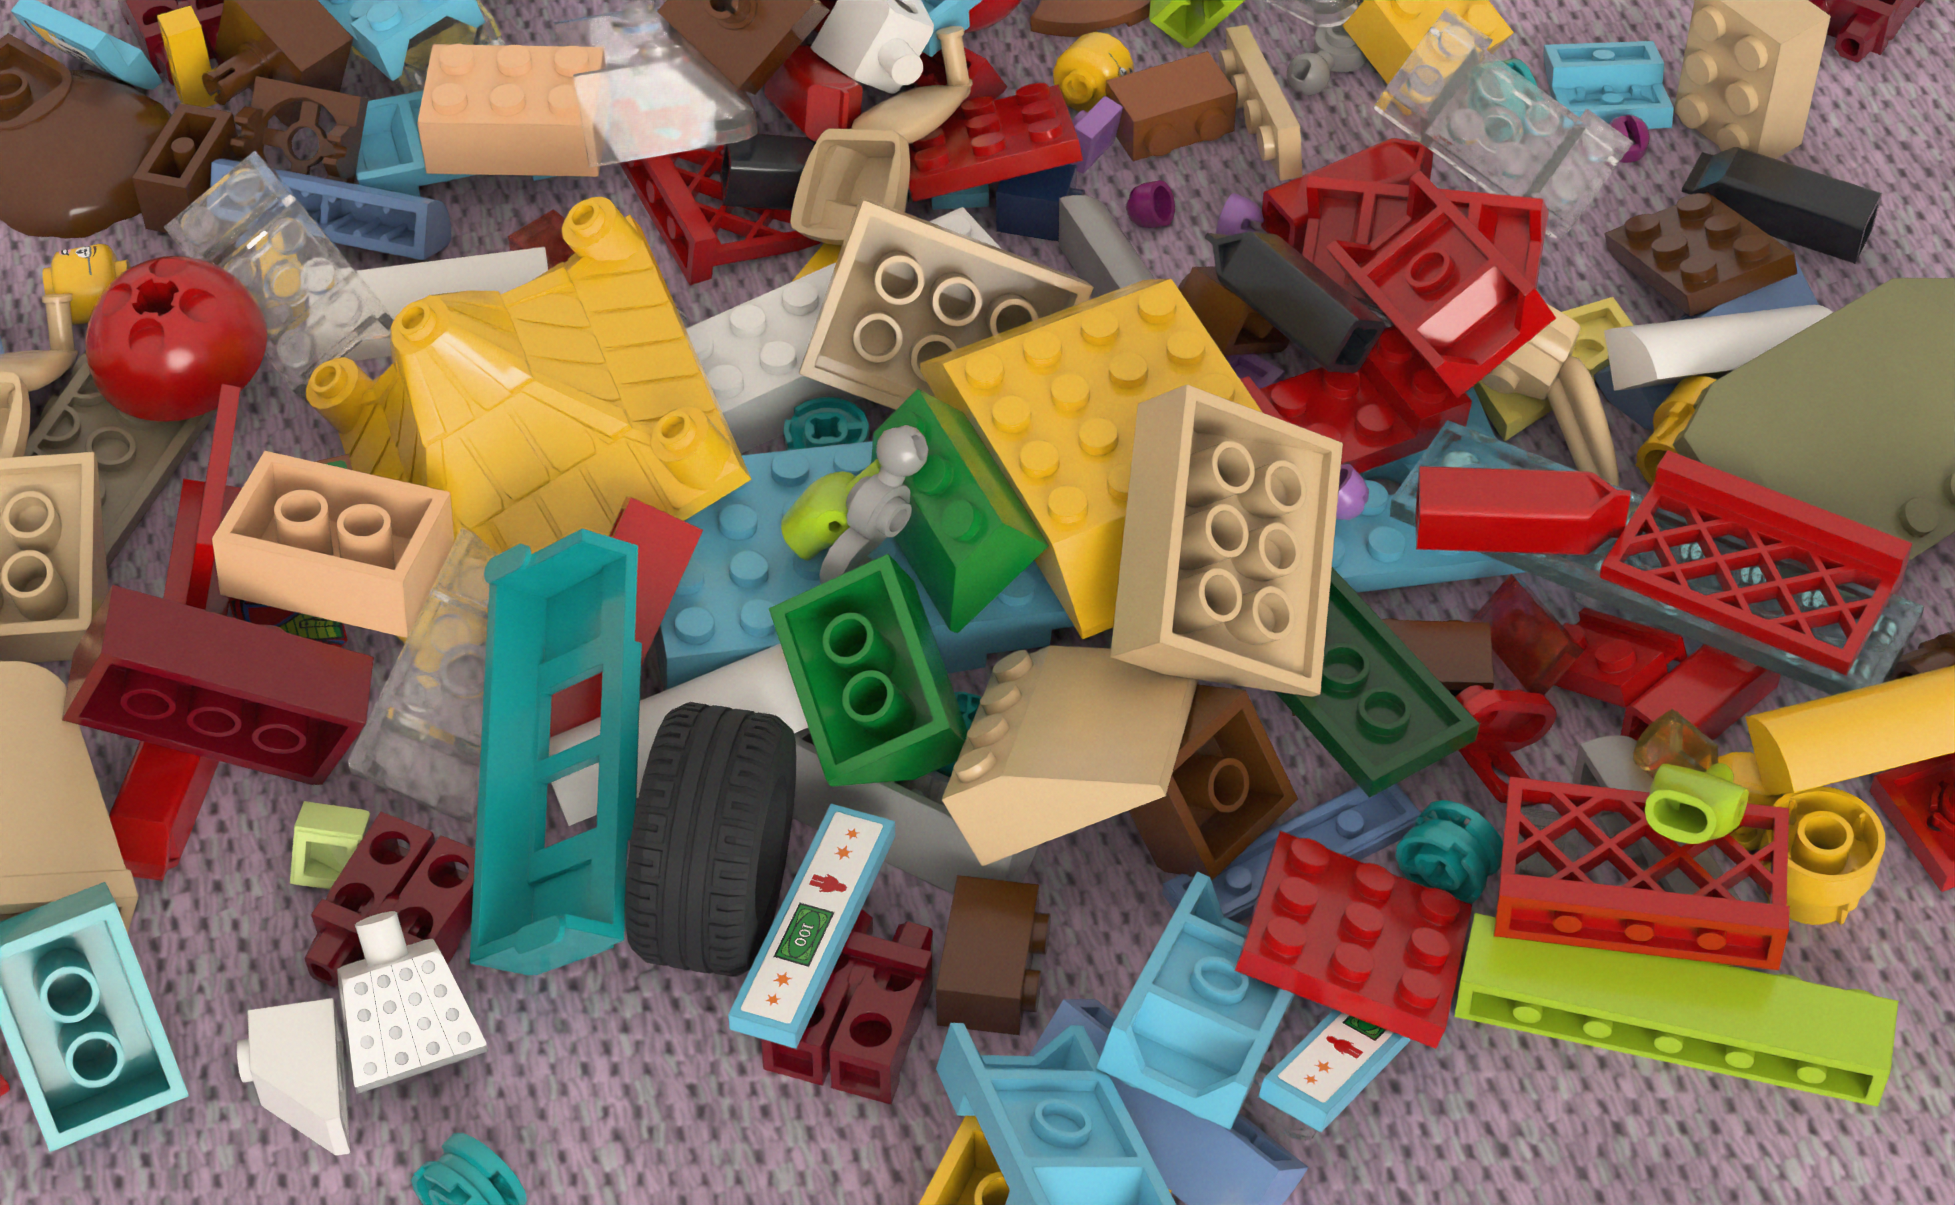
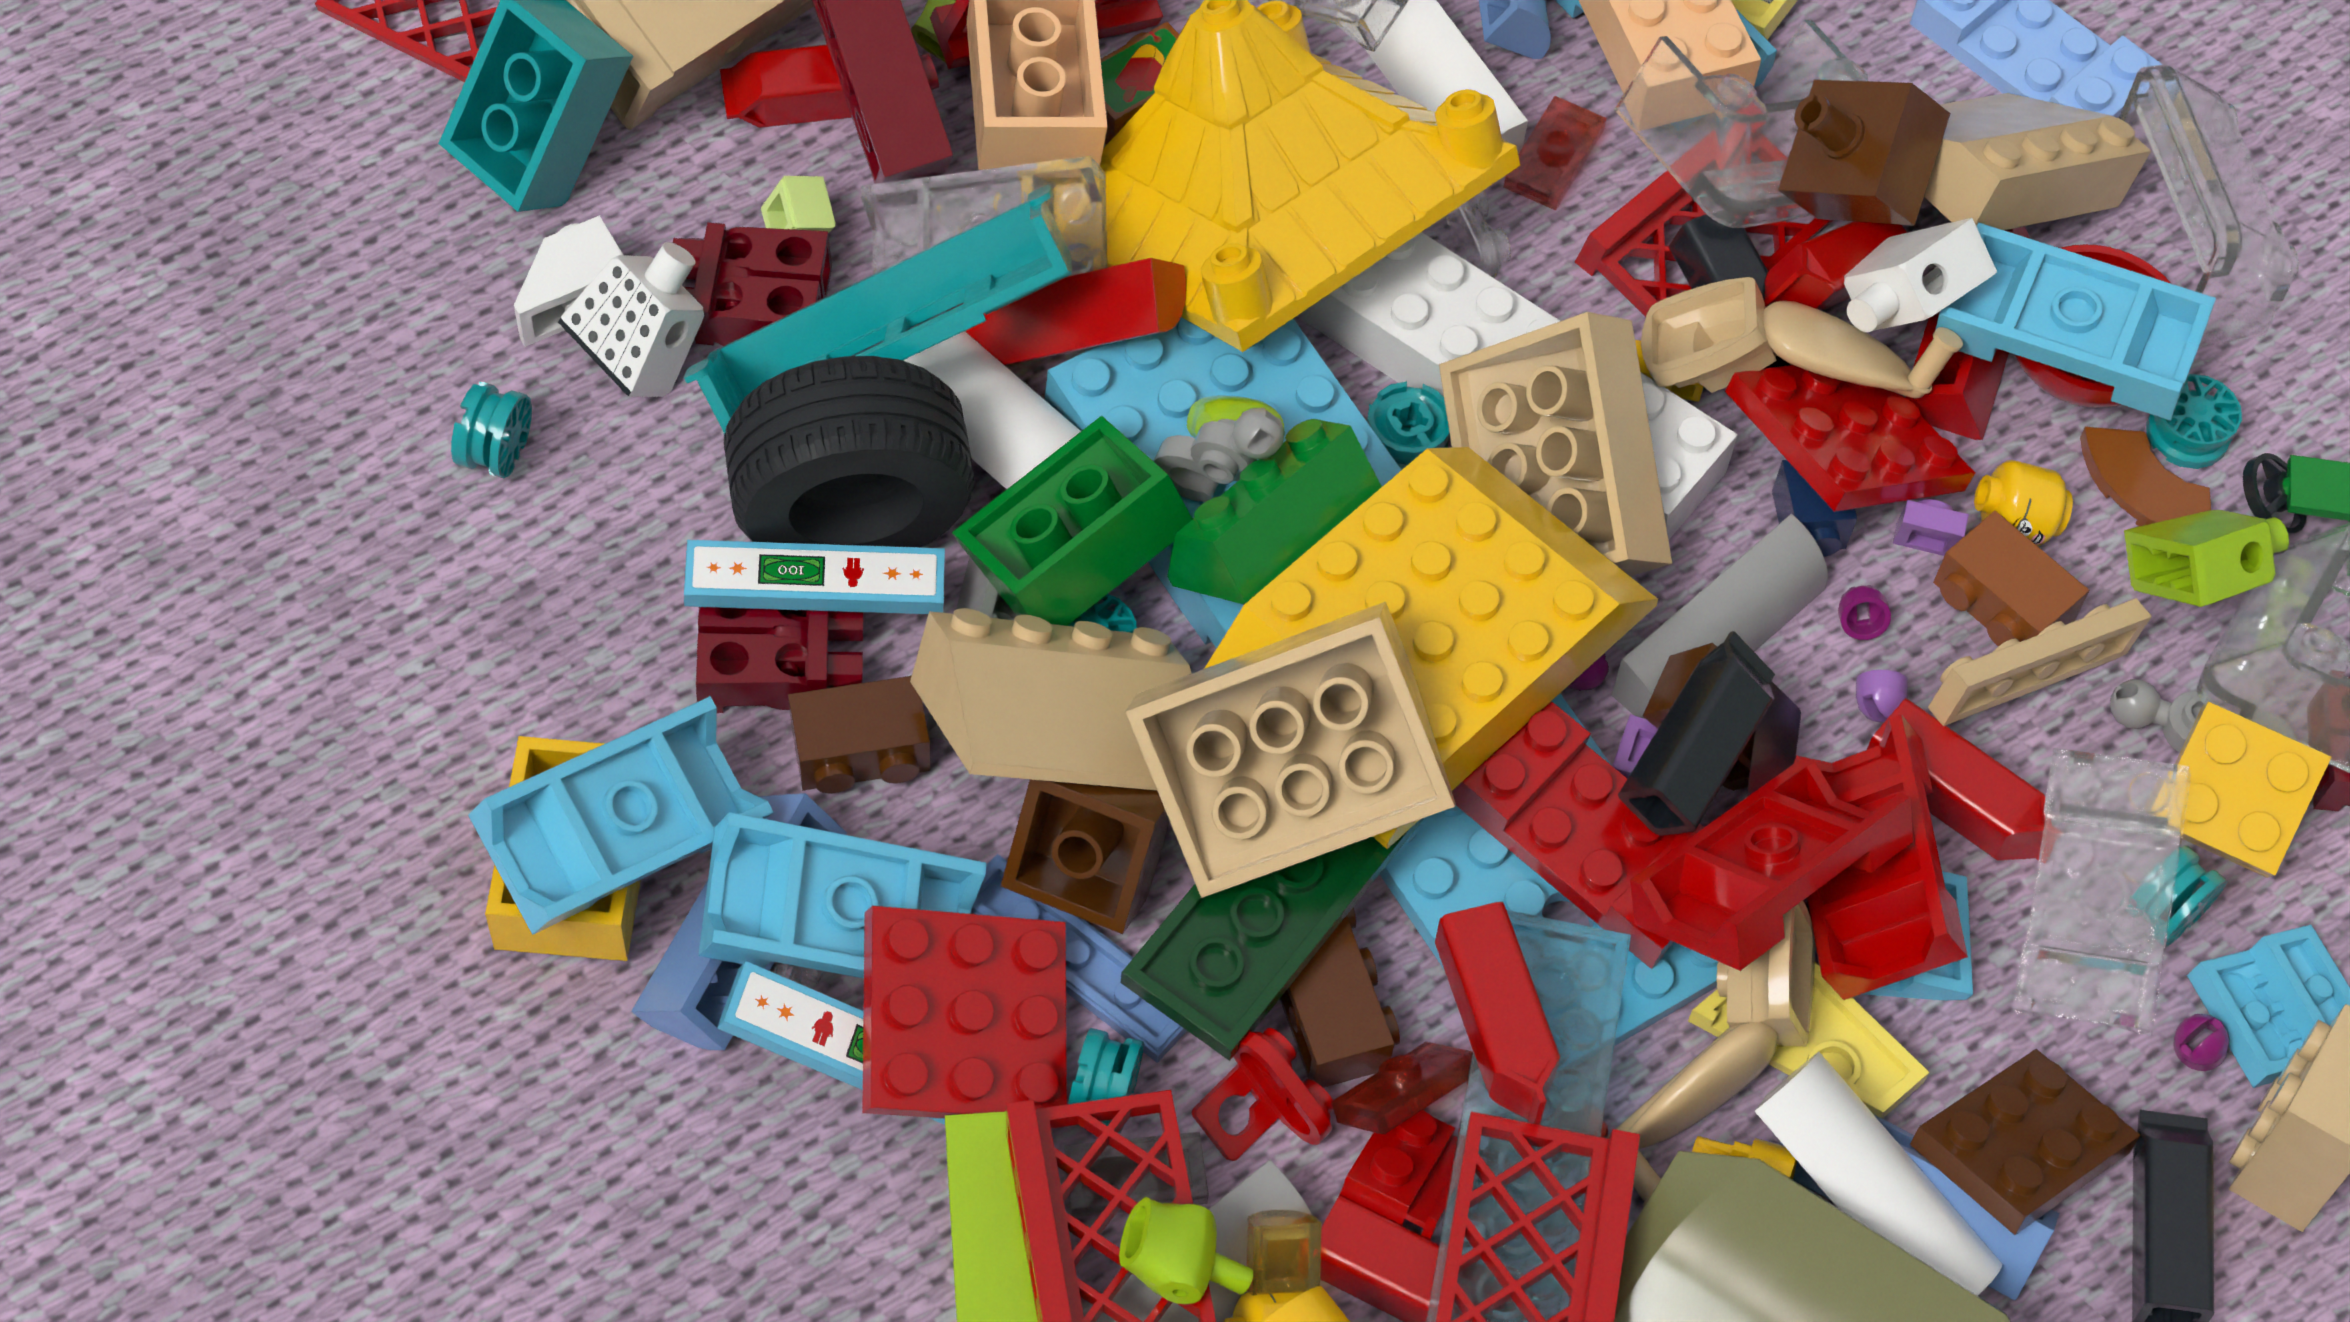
camera: 65 degrees right, 10 degrees up
(1352, 493) = (1493, 863): medium lavender hinge -> none

